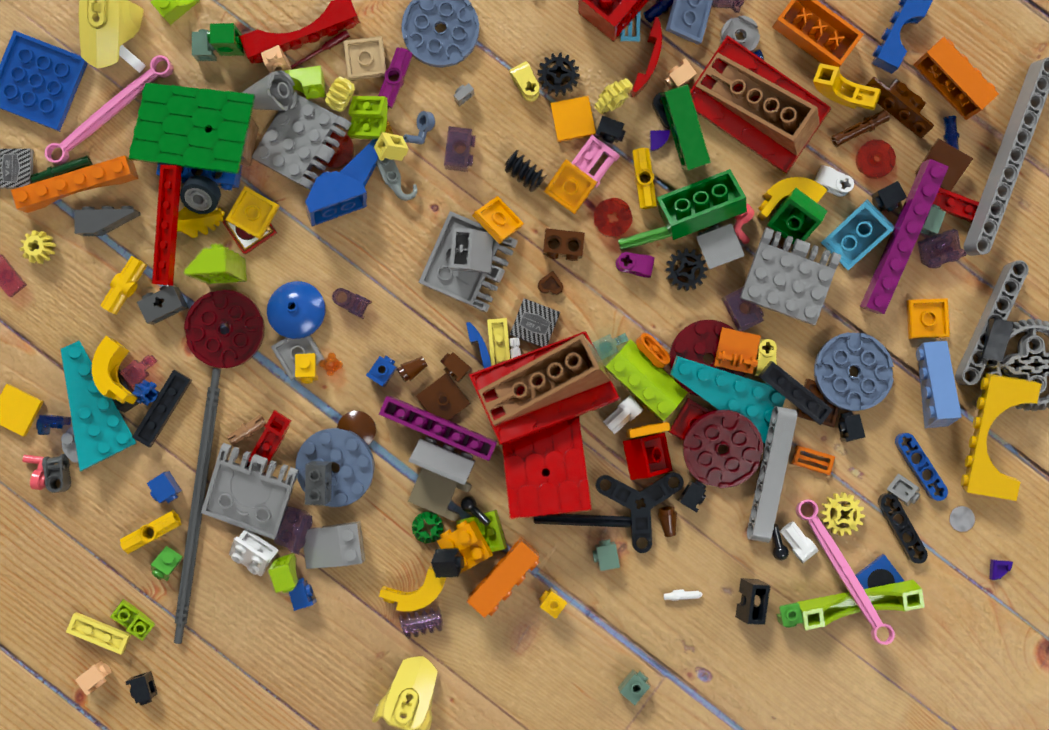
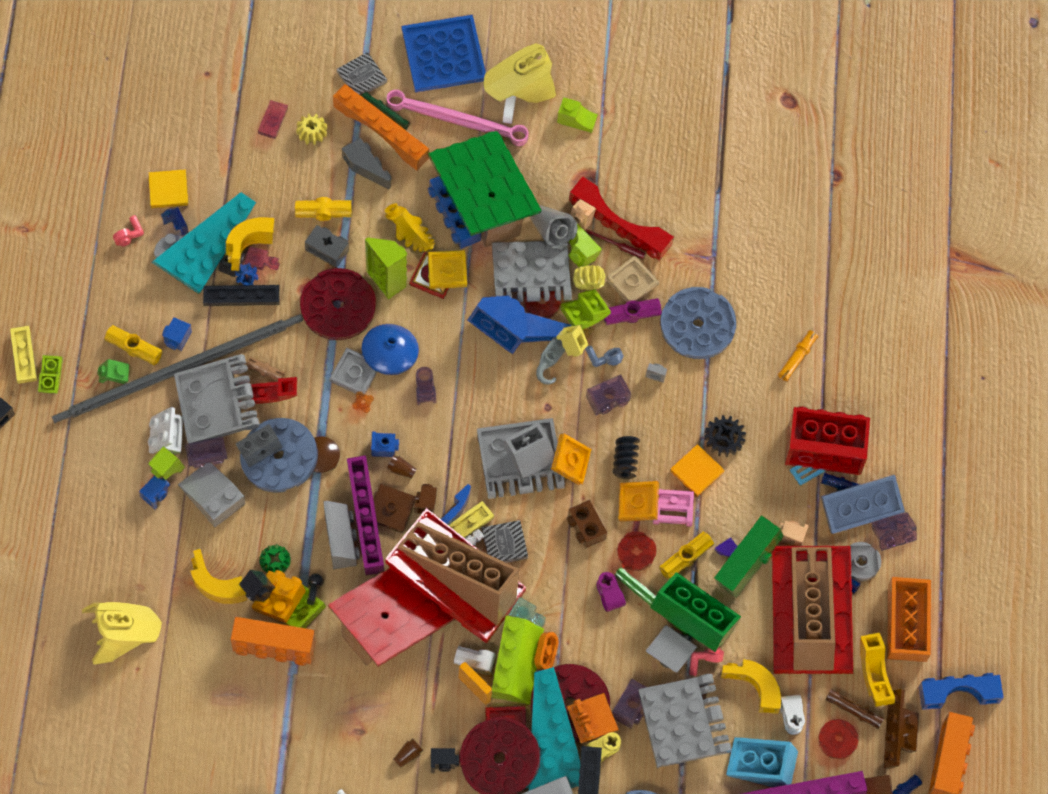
camera: 55 degrees right, 20 degrees down
(55, 472) = (139, 245): dark grey piece -> none
(166, 224) = (393, 210): red plate -> none
(200, 194) = (435, 221): black wheel -> none
(201, 48) = (556, 155): sand green brick -> none
(225, 39) = (572, 167): green brick -> none
(305, 368) = (347, 383): yellow bracket -> none
(421, 623) = (190, 602): piece -> none
(435, 493) = (310, 547): dark tan flag -> none
(524, 78) = (701, 412): light yellow piece -> none
(551, 284) = (546, 535): reddish brown tile -> none
(552, 602) = (275, 695): yellow bracket -> none
(584, 520) = (362, 682): black axle -> none
(606, 555) = (345, 718): sand green brick -> none
(610, 130) = (707, 504): black brick -> none
(613, 96) = (736, 487): light yellow gear -> none
(647, 456) = (453, 701): red slope -> none
(652, 496) = (421, 726): black piece -> none
(655, 38) = (765, 504): red slope -> none
(689, 277) = (638, 641): black gear -> none
(797, 216) = (739, 695): green brick -> none
(889, 197) = (811, 767): black brick -> none

